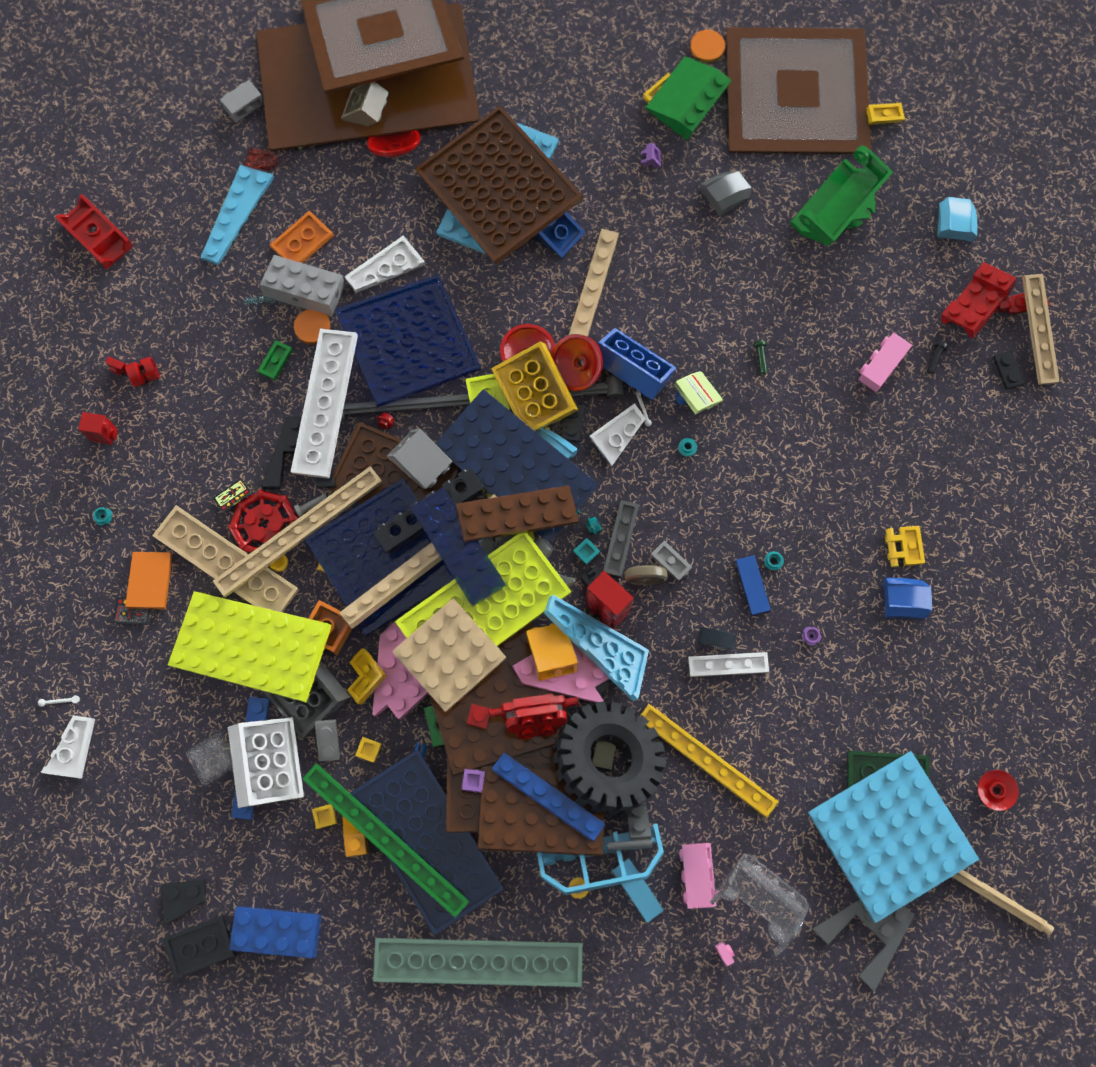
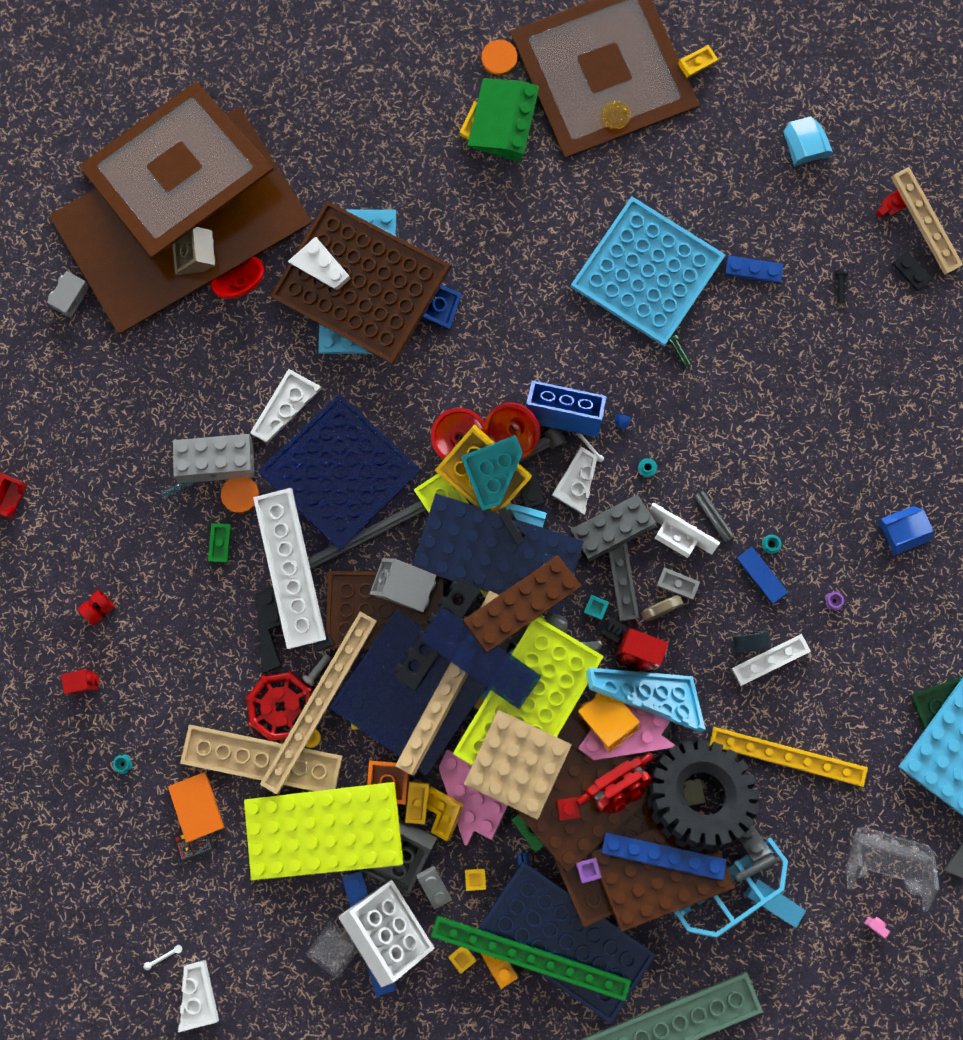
camera: 20 degrees left, 5 degrees up
(116, 366) = (68, 612): red plate -> none
(232, 495) = (238, 692): piece -> none
(240, 201) = (113, 394): medium azure wing -> none
(267, 159) = (120, 345): clear red plate -> none
(302, 239) = (190, 411): orange tile -> none
(345, 657) = (416, 802): none -> yellow plate
(385, 421) = (352, 559): red plate -> none
(469, 155) = (319, 263): none -> white wing
(537, 434) = (508, 517): none -> black plate
(542, 386) = (492, 470): none -> teal plate
(576, 882) = (719, 921): yellow tile -> none
(593, 525) = (591, 579): teal plate -> none
(594, 282) = (492, 344): tan plate -> none
(633, 487) = (614, 527): none -> dark grey plate
(652, 155) = (494, 190): medium lavender tile -> none
(691, 517) = (679, 534): none -> white bracket
(697, 875) = (824, 866): bright pink brick -> none
(698, 392) = (635, 410): yellowish green slope -> none
(726, 191) = (579, 199): dark grey slope -> none
(730, 513) = (714, 516): none -> dark grey axle
(762, 276) = (647, 271): none -> medium azure plate
(797, 127) = (621, 109): none -> clear yellow gear
(842, 199) = (694, 166): green piece -> none
(861, 312) = (754, 269): none -> blue plate
(884, 361) = (795, 310): bright pink brick -> none
(911, 546) = (890, 478): yellow plate -> none
(979, 299) = (859, 213): red piece -> none

